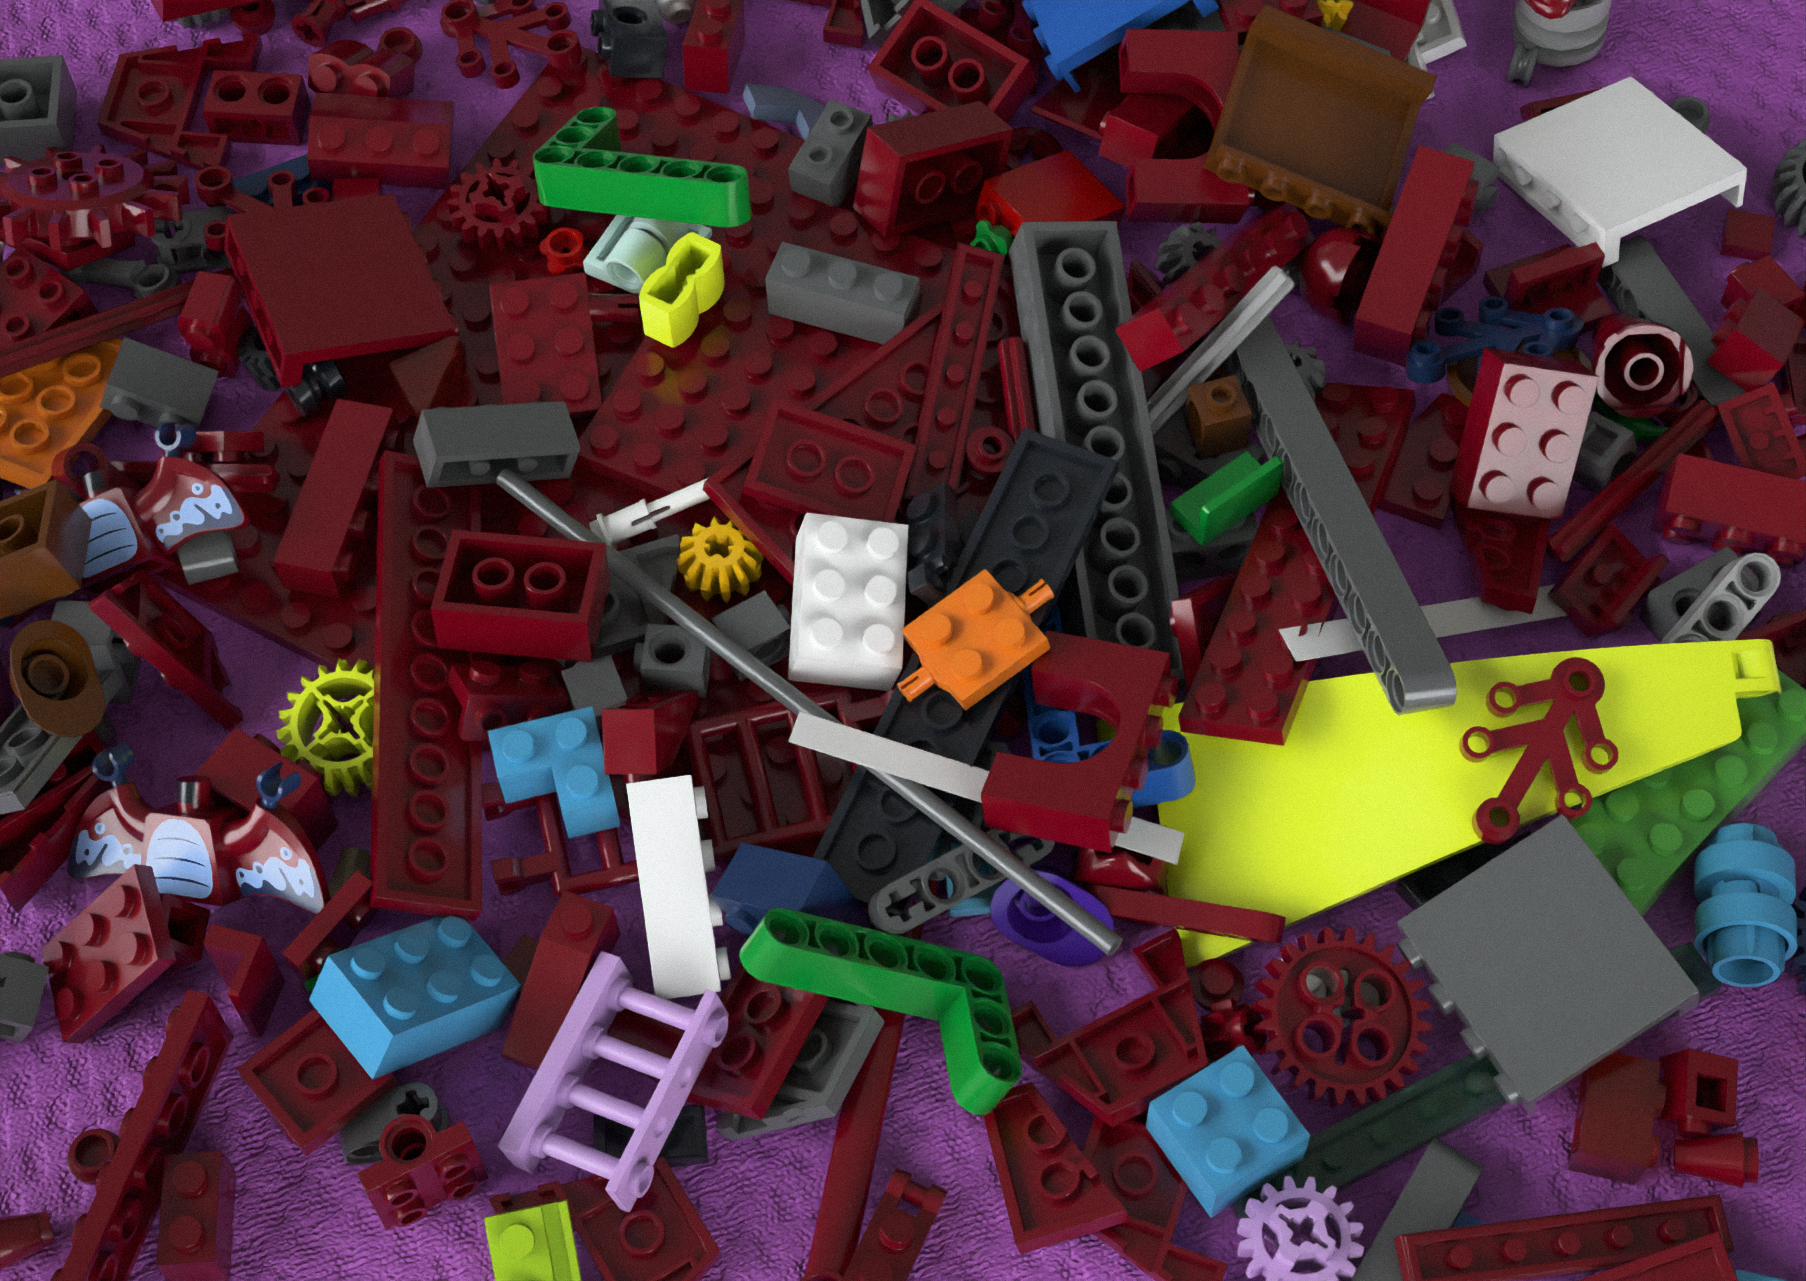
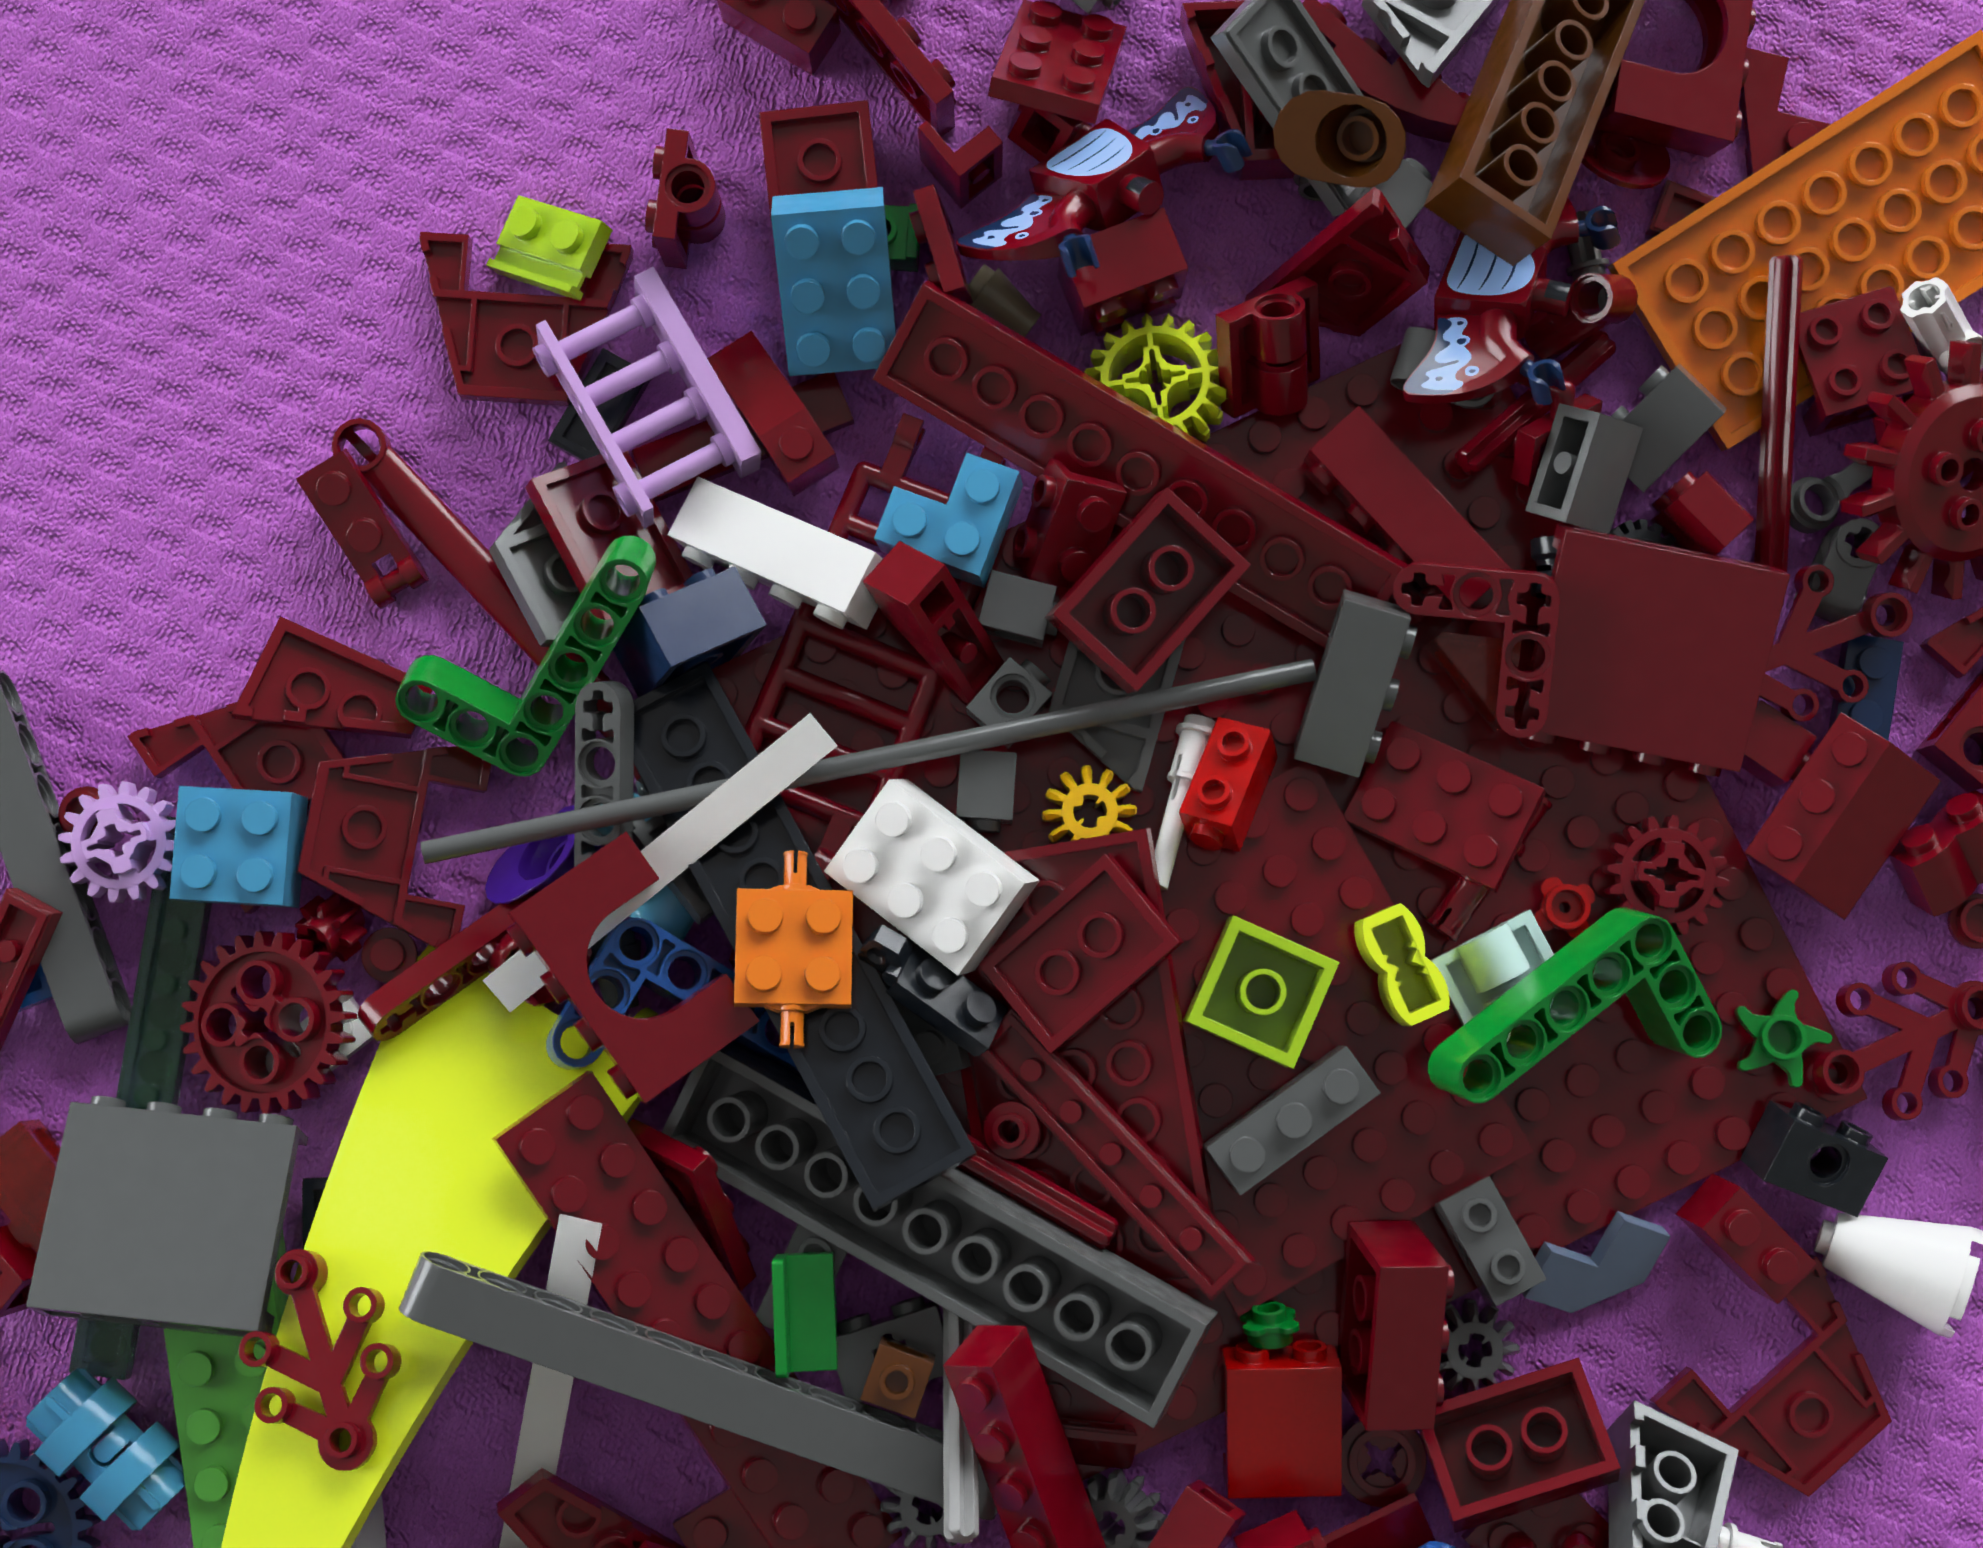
camera: 125 degrees right, 25 degrees up
(228, 397) = (1584, 468): none -> dark grey brick
(263, 651) = (1270, 350): none -> dark red plate
(362, 1134) = (748, 211): dark grey piece -> none
(375, 362) = (1502, 609): none -> dark red beam
(564, 92) = (1779, 1038): none -> green animal
(632, 473) = (1228, 785): none -> red brick
(767, 353) = (1261, 992): none -> lime brick

